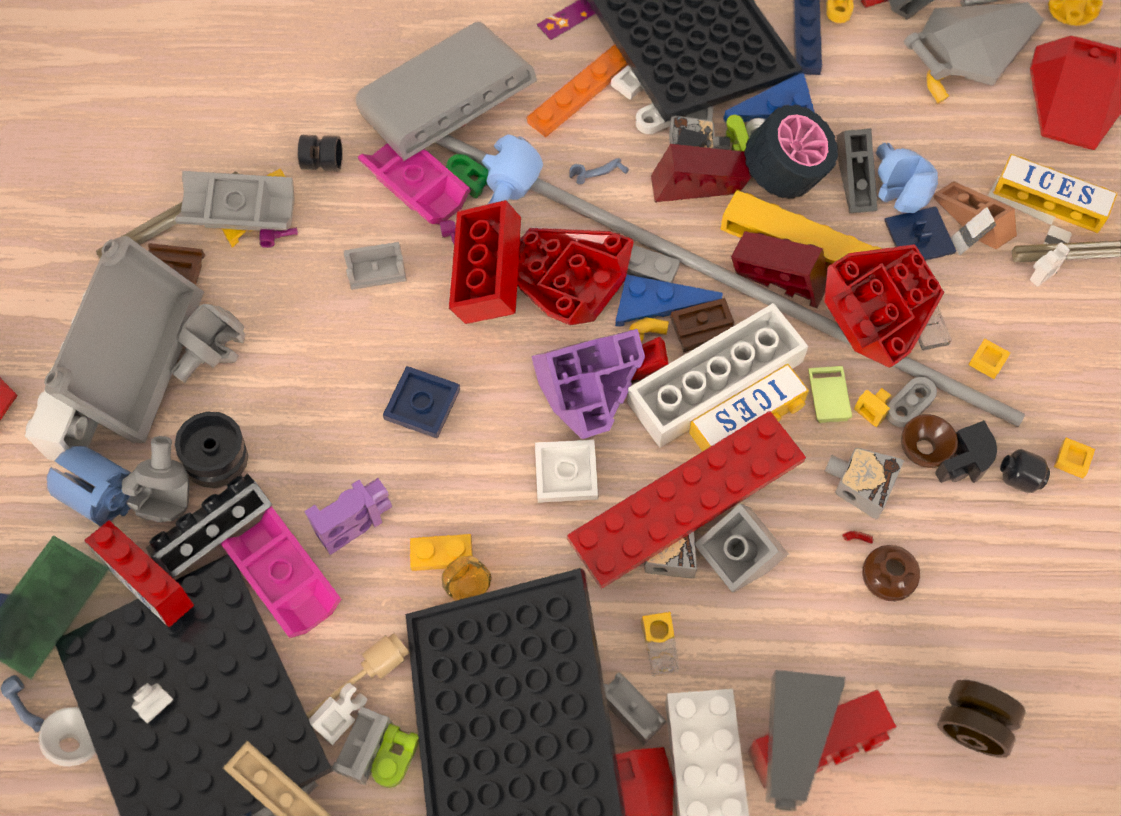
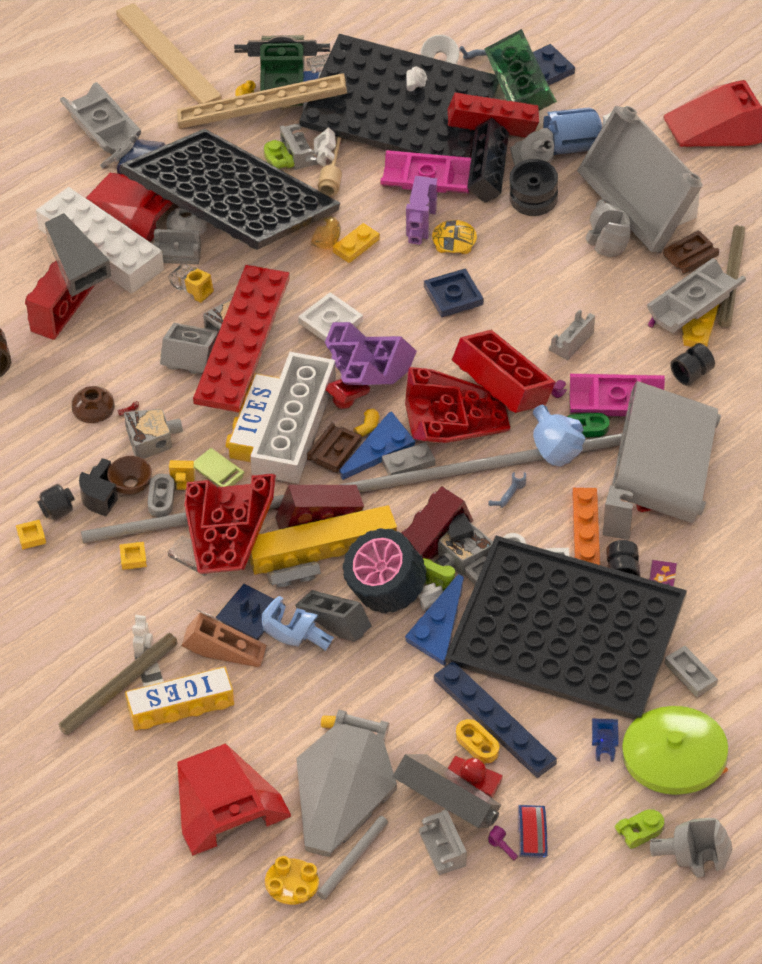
camera: 135 degrees right, 15 degrees down
(341, 468) = (454, 237): none -> yellow dish
(548, 67) = (618, 514): none -> light grey hinge
(585, 36) = (623, 556): none -> black wheel
(859, 227) = (284, 576): none -> light grey plate

